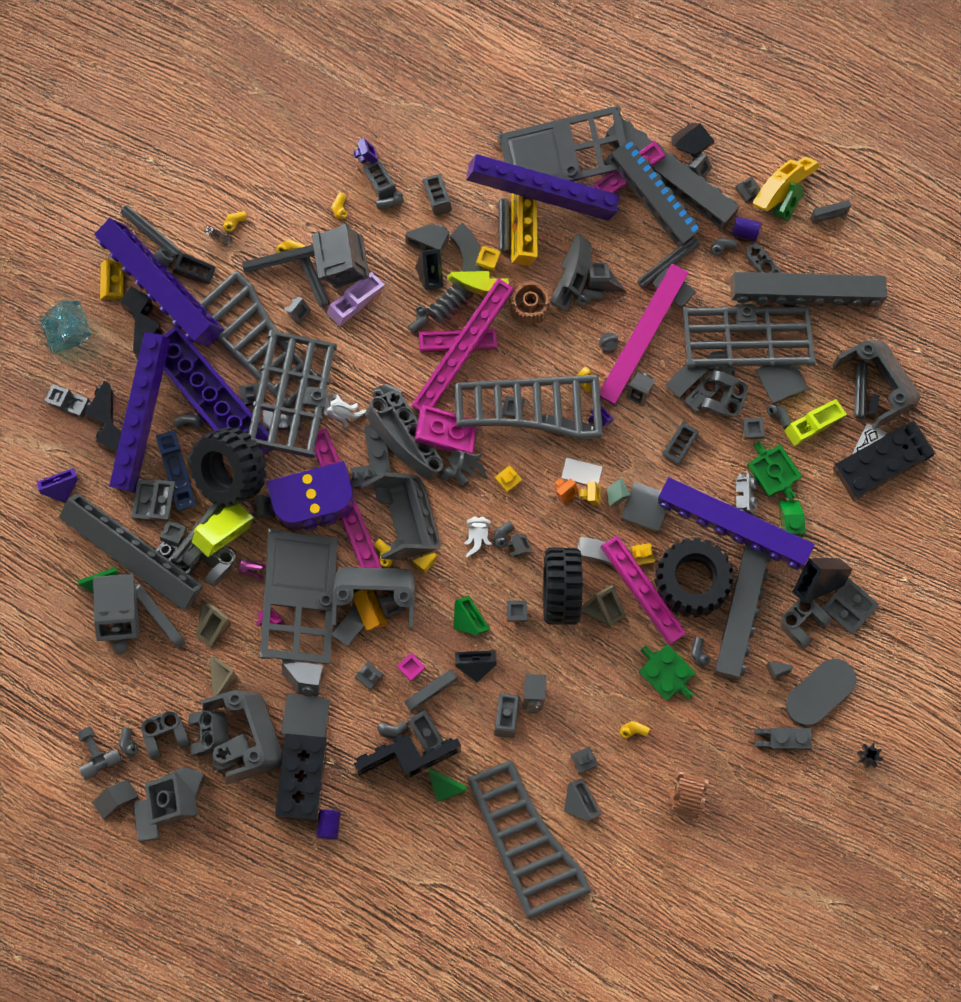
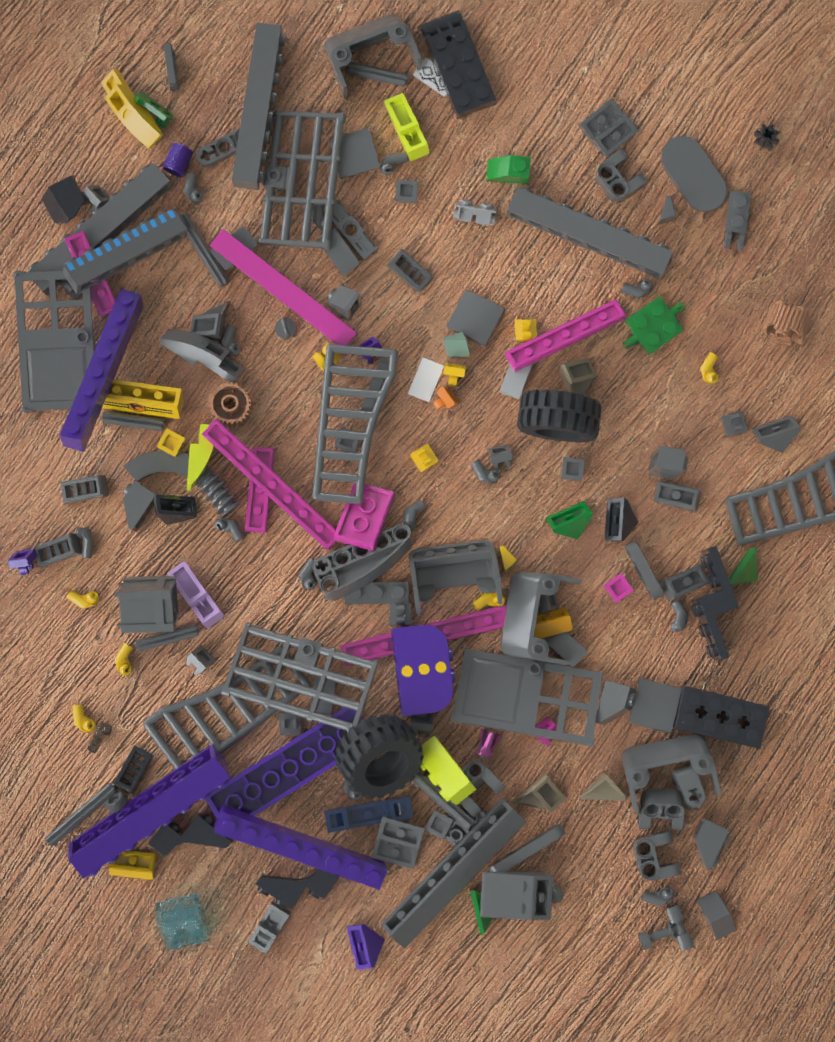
camera: 80 degrees left, 10 degrees up
(145, 830) = (743, 884): dark grey slope -> none
(170, 800) = (732, 857): dark grey slope -> none
(188, 418) = (309, 793): dark grey arm -> none
(278, 258) = (136, 674): dark grey axle -> none
(328, 824) = (771, 694): dark purple piece -> none
(340, 410) = (325, 625): white piece -> none
(369, 675) = (618, 633): dark grey tile -> none
(465, 461) = (401, 500): dark grey piece -> none
(477, 530) = (477, 498): white piece -> none
(708, 556) = (567, 253): black tyre -> none
(729, 397) = (368, 211): dark grey piece -> none
(735, 523) = (512, 227): dark purple brick -> none
(748, 189) = (130, 150): dark grey tile -> none
(774, 470) = (454, 178): green plate -> none
(821, 577) = (580, 150): black slope -> none
(872, 406) = (397, 64): black tile -> none

